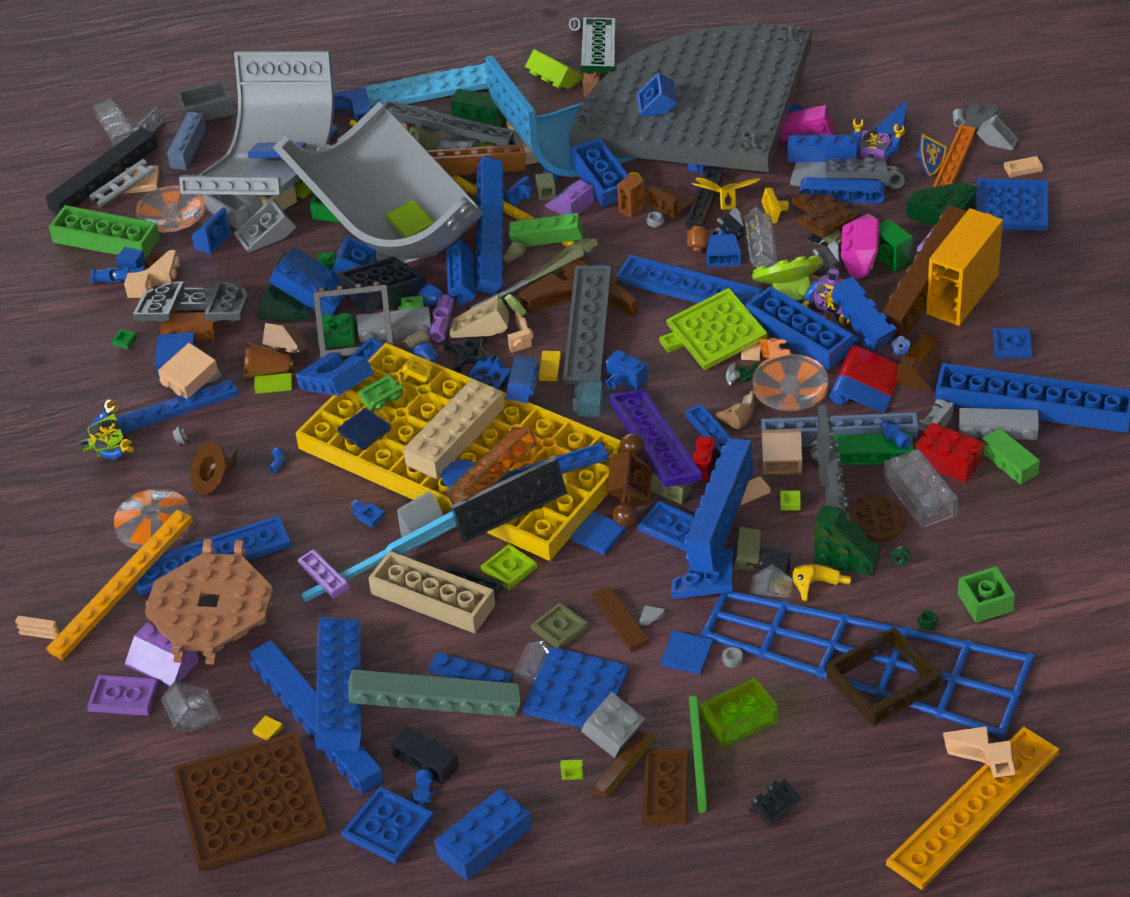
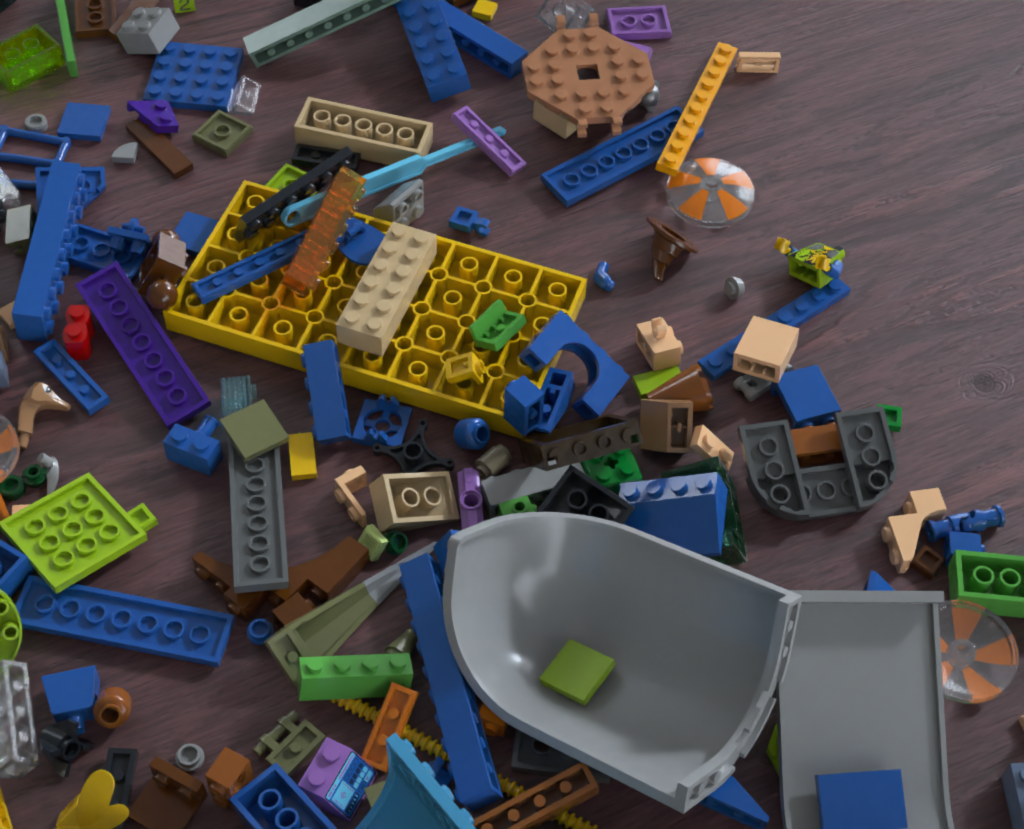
camera: 160 degrees right, 10 degrees up
(258, 326) = (709, 446): none -> light nougat plate
(261, 397) = (658, 344): none -> light nougat brick
(364, 429) = (502, 283): clear blue tile -> none
(384, 330) = (523, 405): none -> blue brick
(462, 669) = (304, 79): blue plate -> none
(532, 211) = (391, 719): none -> orange tile
(580, 365) = (254, 430): none -> olive tile
(594, 213) = (294, 748): none -> olive plate
(618, 642) = (156, 114): none -> dark purple wing
(654, 519) = (131, 234): none -> blue hips

